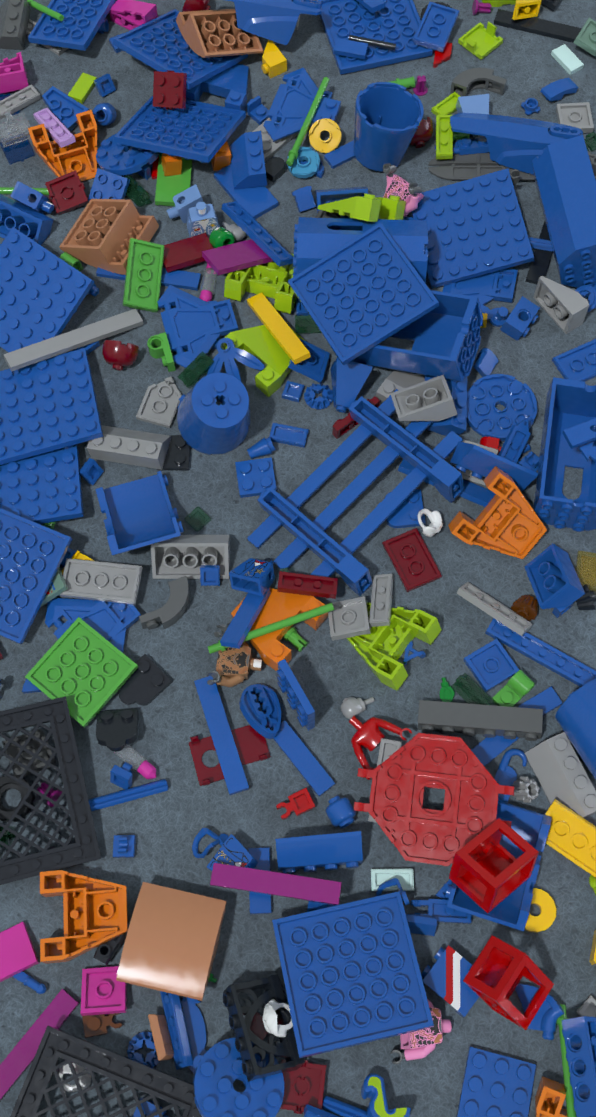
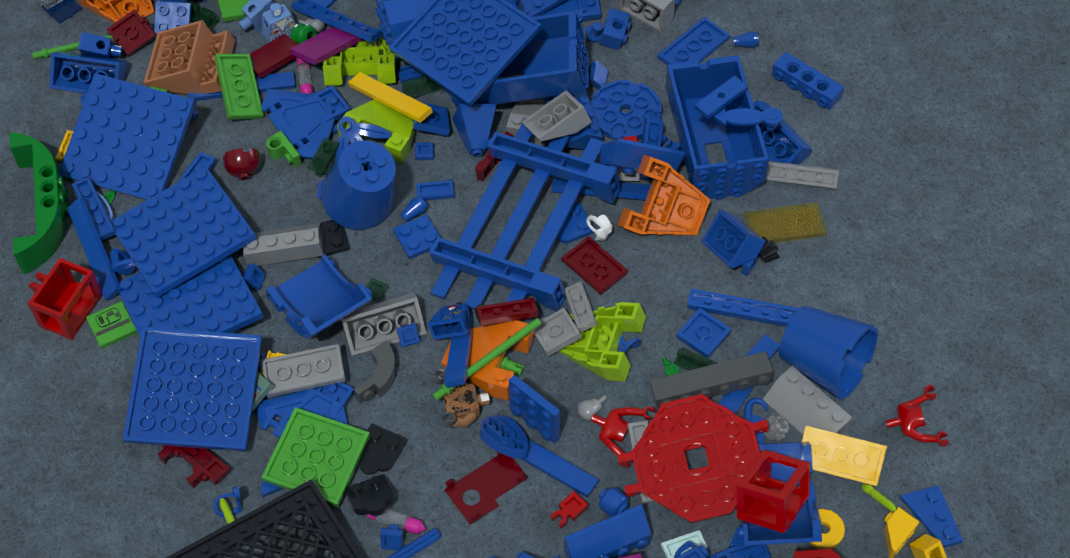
camera: 20 degrees left, 10 degrees down
(73, 339) = (190, 162): light grey tile -> none
(160, 403) = (298, 198): light grey tile -> none
(221, 736) = (474, 472): blue tile -> none
(318, 403) = (453, 154): blue gear -> none
(494, 608) = (688, 283): light grey tile -> none
(514, 690) = (733, 345): bright green plate -> none
(526, 607) = (715, 274): reddish brown piece -> none

